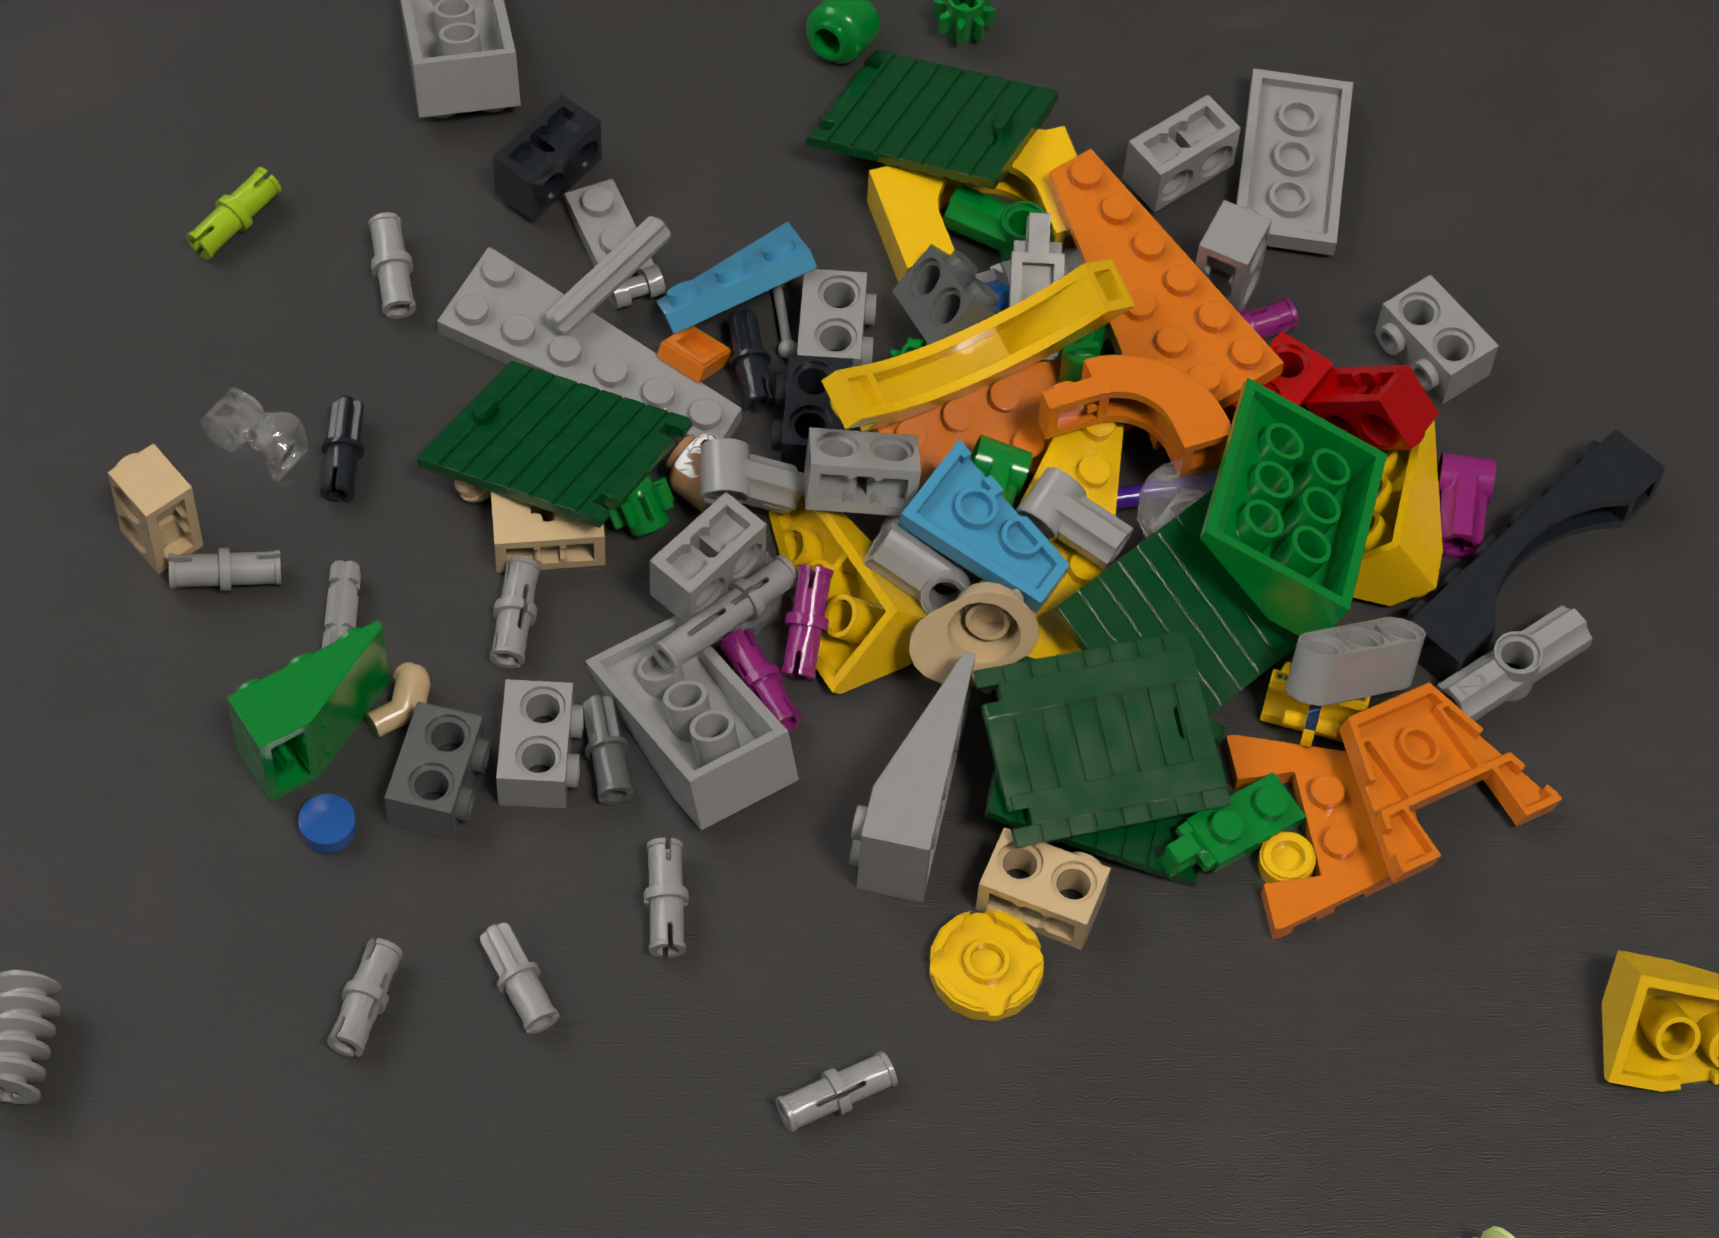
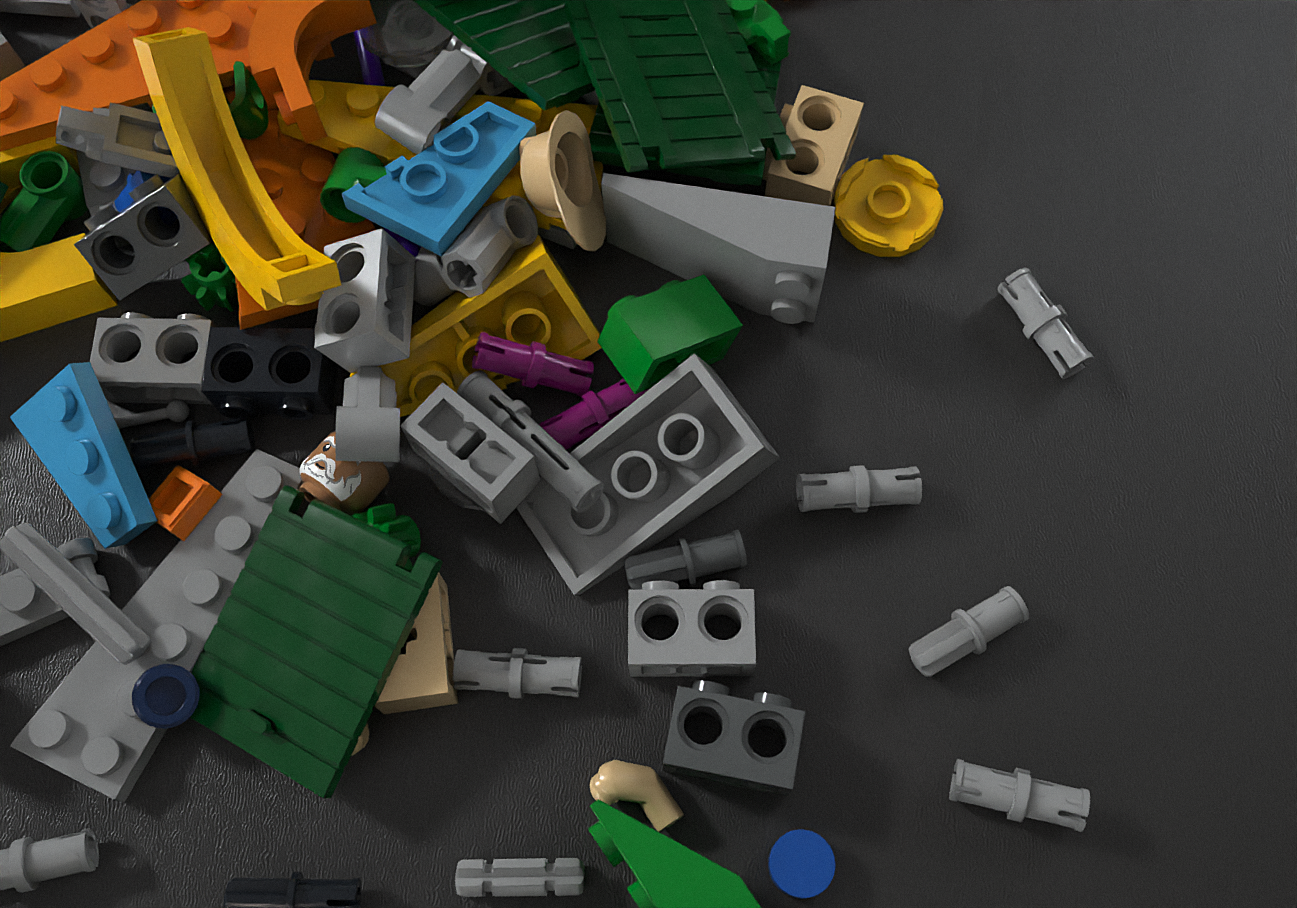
camera: 85 degrees left, 10 degrees up
(515, 347) = (165, 696): none -> dark blue tile
(831, 732) = (662, 329): none -> green brick

